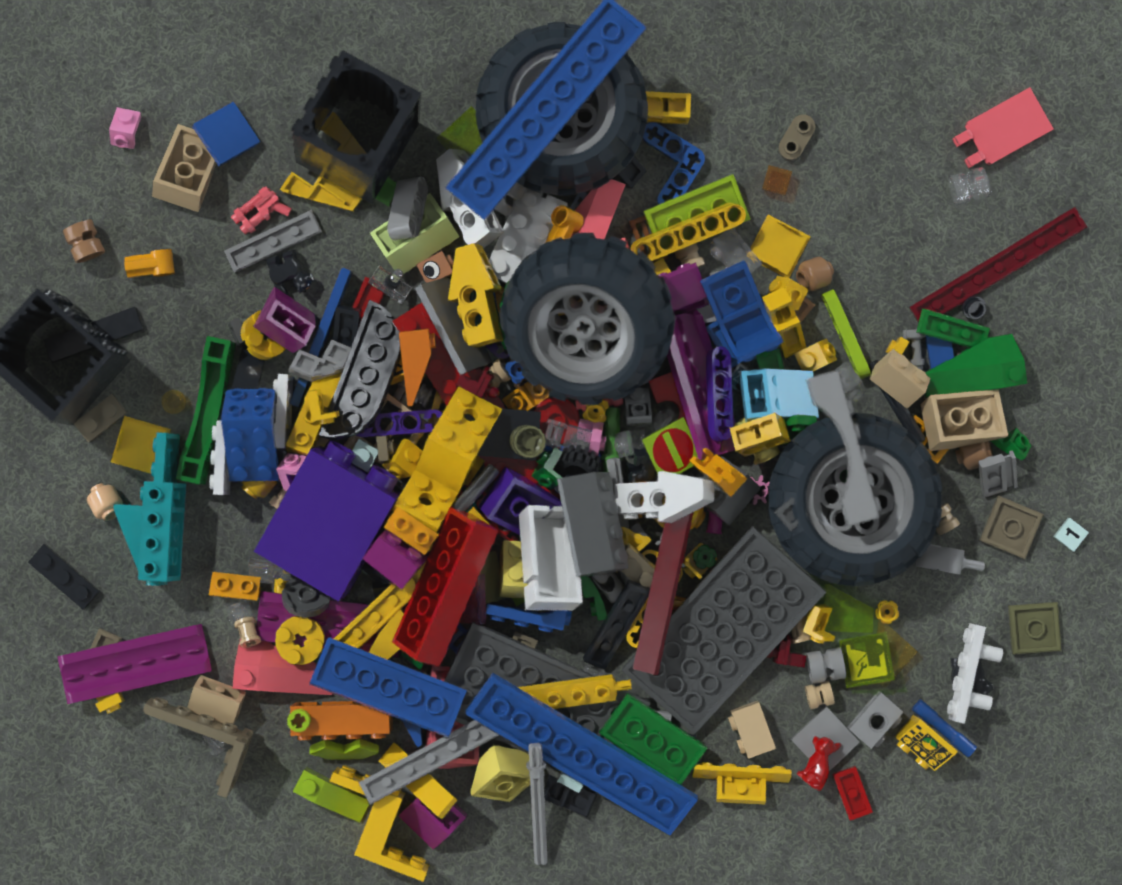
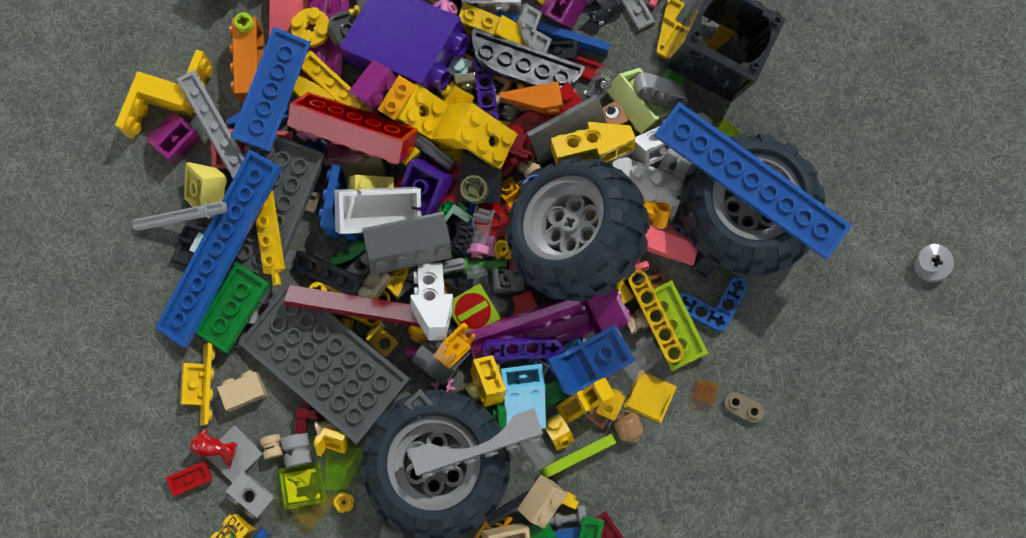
camera: 85 degrees right, 10 degrees down
(314, 404) = (493, 22): yellow bracket -> none
(329, 795) = (192, 40): lime slope -> none
(335, 751) = (224, 72): lime tile -> none
(425, 788) = (191, 126): yellow tile -> none
(668, 107) = (760, 294): yellow brick -> none
(698, 557) = (385, 340): green plate -> none

